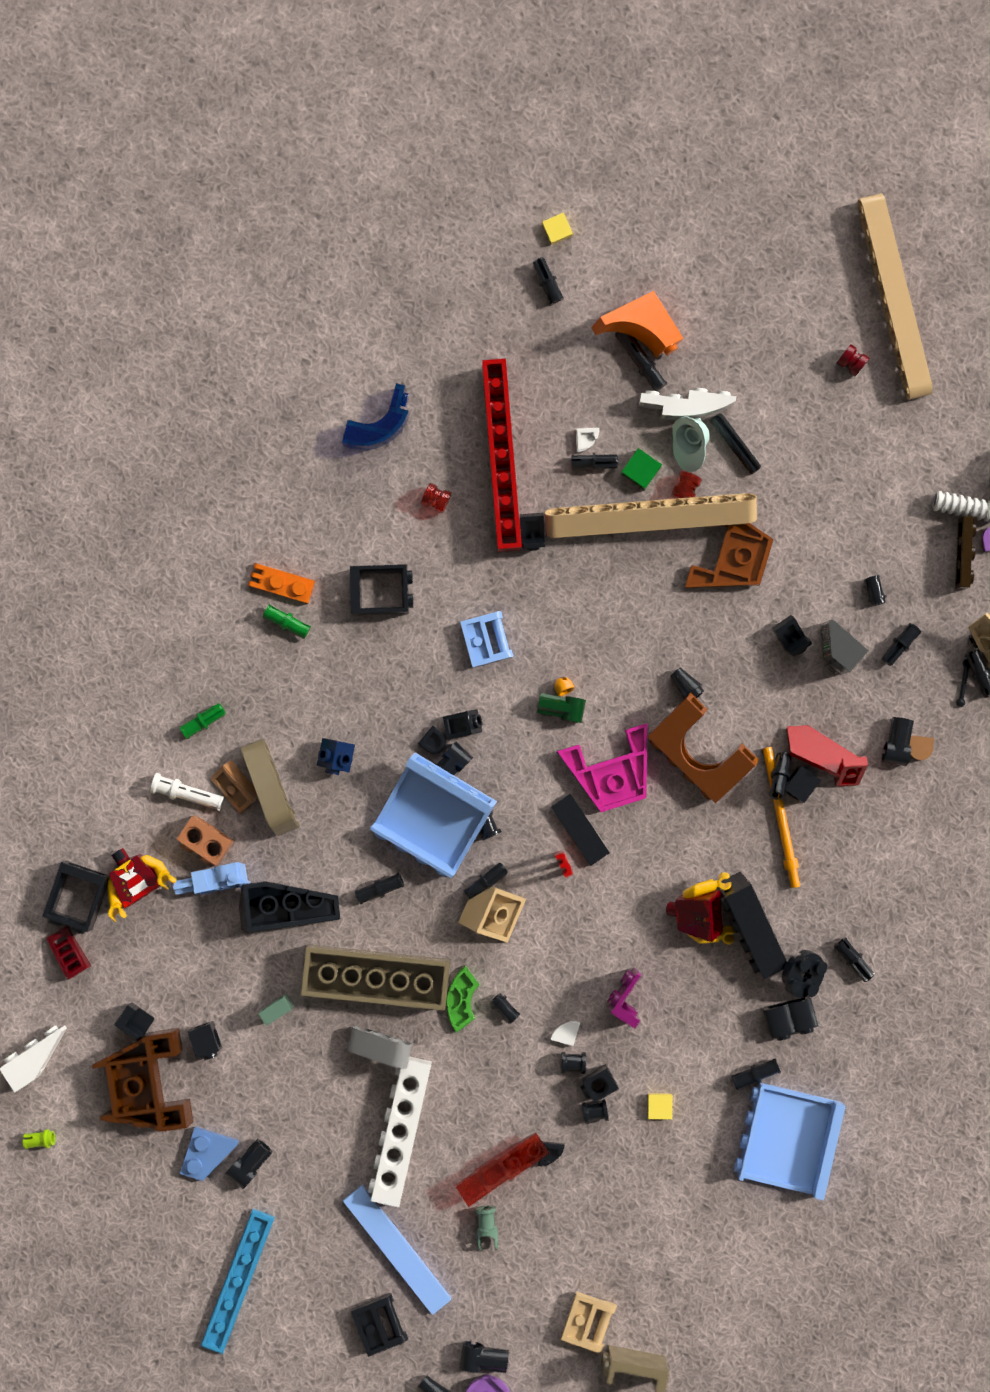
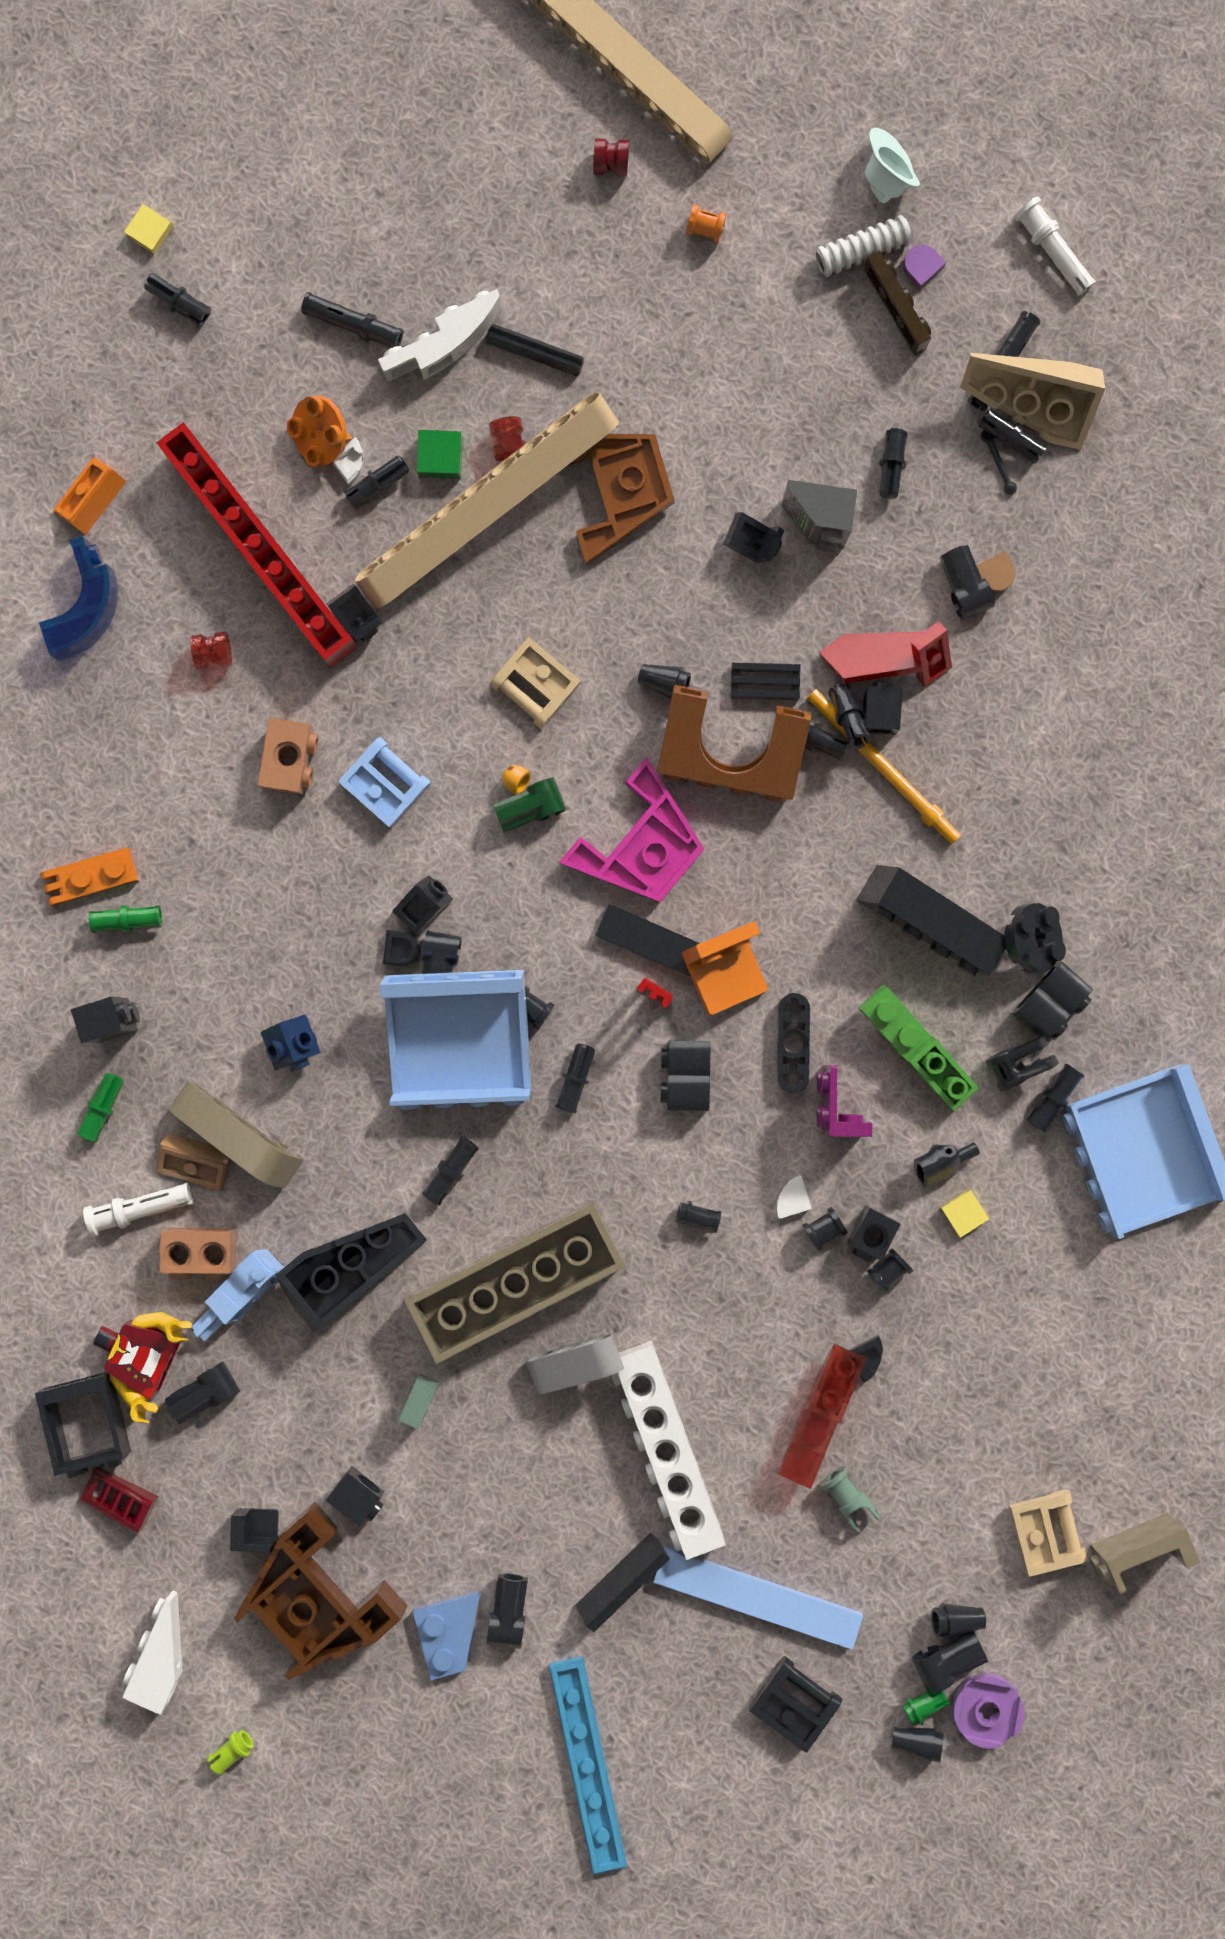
camera: 30 degrees left, 0 degrees up
(160, 923) = (208, 1390): none -> black piece
(239, 674) = (105, 1019): none -> black brick
(325, 1189) = (622, 1582): none -> black tile
(356, 589) = (172, 805): black window -> none
(423, 361) = (89, 495): none -> orange slope
(444, 575) = (281, 737): none -> nougat brick
(452, 1374) = (925, 1706): none -> green pin
(459, 999) = (635, 1241): bright green tile -> none
(493, 913) = (608, 1110): tan slope -> none
(503, 1337) = (957, 1620): none -> black cone
(551, 922) = (687, 1075): none -> black brick
(587, 408) = (316, 443): none -> orange plate
(613, 876) = (725, 969): none -> orange bracket
(618, 635) = (541, 673): none -> tan plate
(621, 962) = (805, 1035): none -> black beam
(644, 320) = (325, 270): orange arch -> none
(666, 1069) = (942, 1162): none -> black piece
(689, 443) = (477, 383): light aqua piece -> none
(695, 994) = (918, 1048): none -> bright green slope
(700, 912) = (860, 944): dark red torso -> none
(727, 711) = (762, 694): none -> black tile
(741, 1037) = (1012, 1071): none -> black piece
(757, 782) = (825, 742): none -> black pin
(854, 959) = (1084, 881): black axle -> none
(875, 590) = (819, 418): black pin -> none
(883, 434) = (706, 223): none -> orange bush

